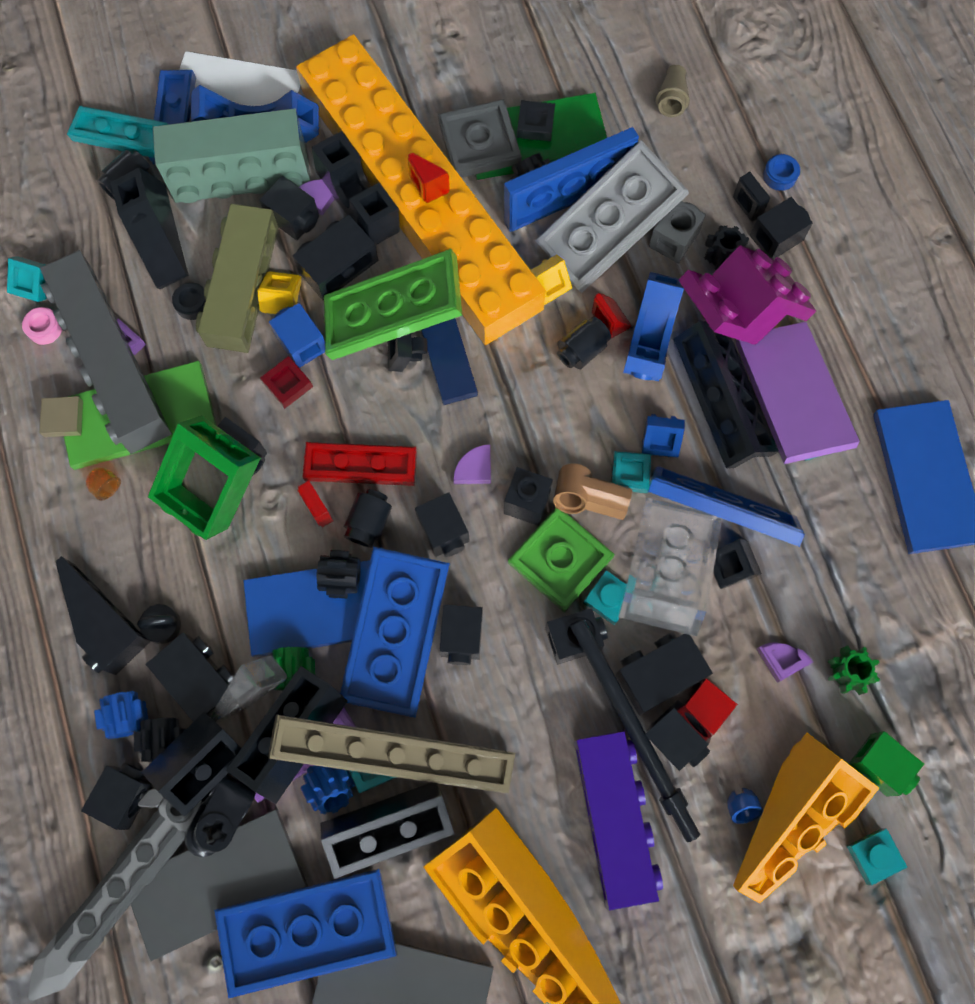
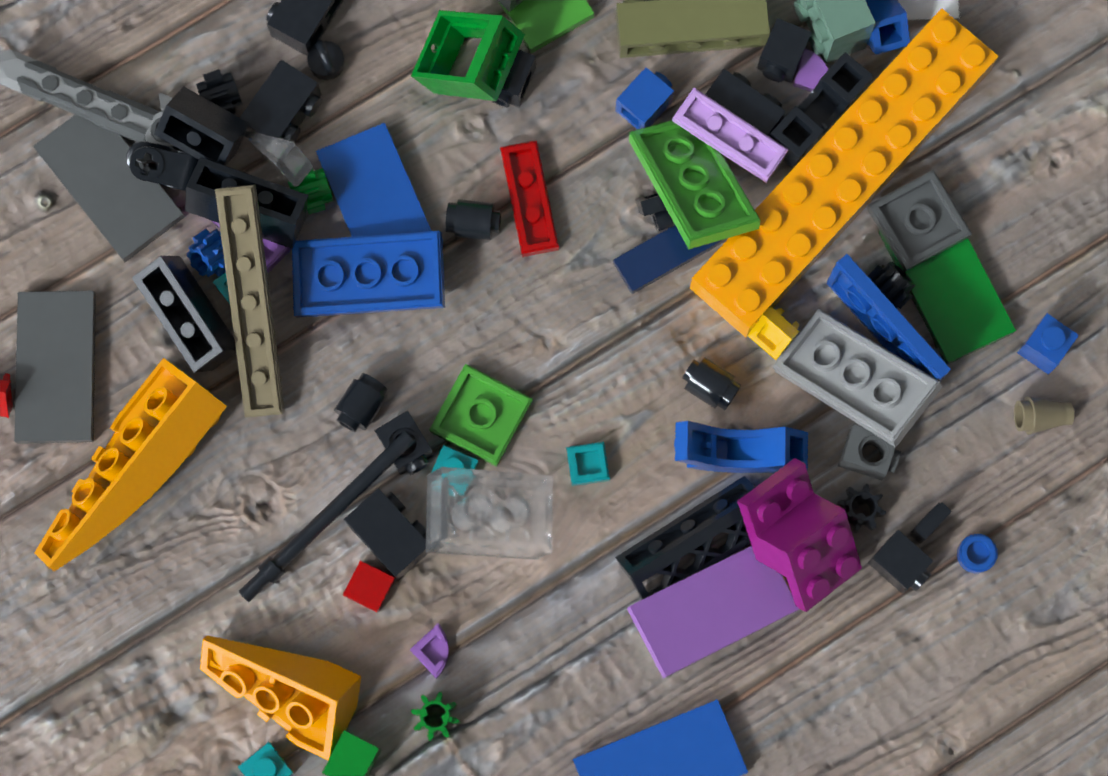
camera: 75 degrees right, 5 degrees up
(117, 796) = (161, 72): black brick -> none
(120, 714) = (233, 52): blue gear -> none
(278, 291) = (691, 68): yellow slope -> none
(286, 382) = (593, 103): dark red plate -> none
(305, 933) = (84, 269): blue tile -> none
(314, 504) = (474, 166): red tile -> none
(338, 574) = (406, 206): black gear -> none
(358, 263) = (730, 135): none -> lavender tile
(428, 178) = (830, 174): red slope -> none
(443, 525) = (482, 292): black brick -> none
(461, 634) = (380, 336): black brick -> none
(474, 467) = (554, 309): medium lavender tile -> none
(523, 670) = (360, 403): none -> black brick
(527, 496) = (531, 365): black brick -> none
(535, 120) = (954, 273): black plate -> none
(580, 491) = (551, 415): medium nougat piece -> none
(610, 314) = (754, 406): red slope -> none
(615, 68) = (1048, 344): none -> blue brick
(616, 821) = (241, 519): dark purple brick -> none
(663, 436) = (630, 484): blue tile -> none
(680, 736) = (331, 560): black brick -> none
(726, 505) = (566, 556): blue tile -> none
(735, 564) = (518, 585): black slope -> none
(744, 806) = (282, 636): blue hinge -> none

